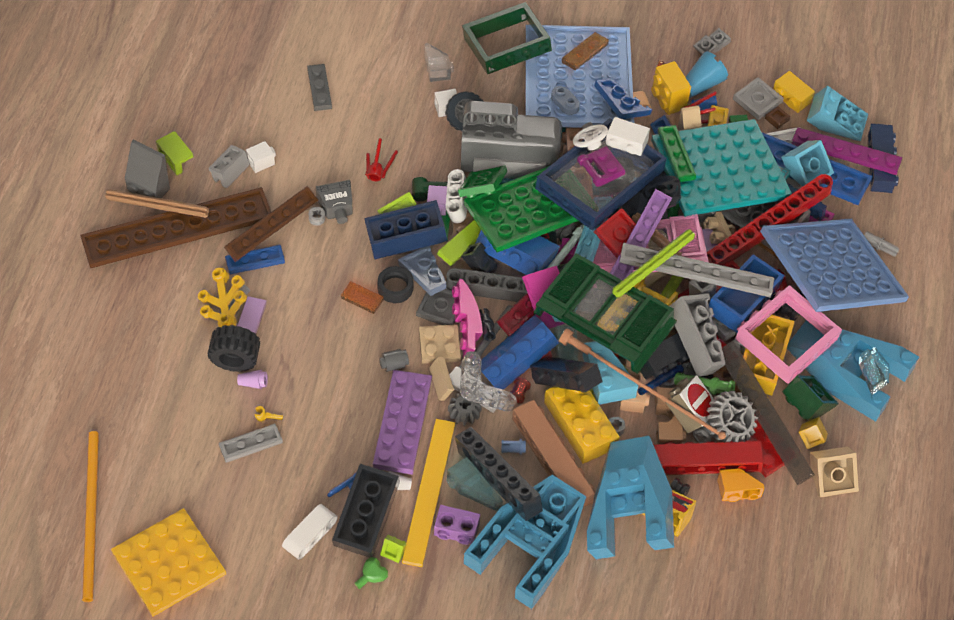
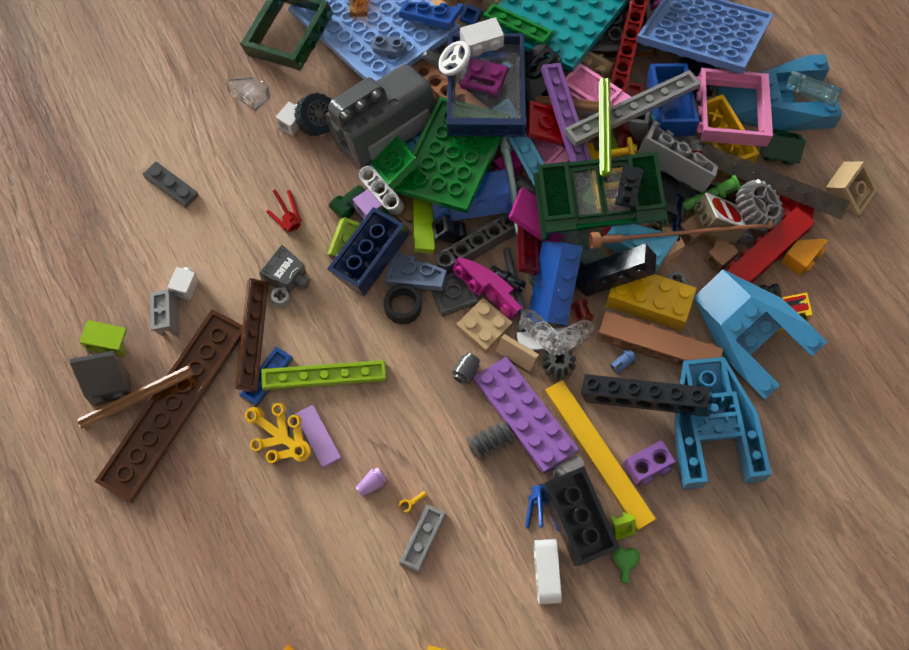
camera: 40 degrees left, 10 degrees up
(234, 348) = (335, 471): black tyre -> none
(293, 288) = (323, 375): none -> lime tile
(360, 419) = (490, 440): none -> dark grey piece
(362, 297) = (386, 336): clear orange tile -> none
(471, 484) = (623, 419): clear light blue slope -> none
(625, 316) = (629, 186): none -> black plate
(813, 433) = (810, 170): yellow panel -> none

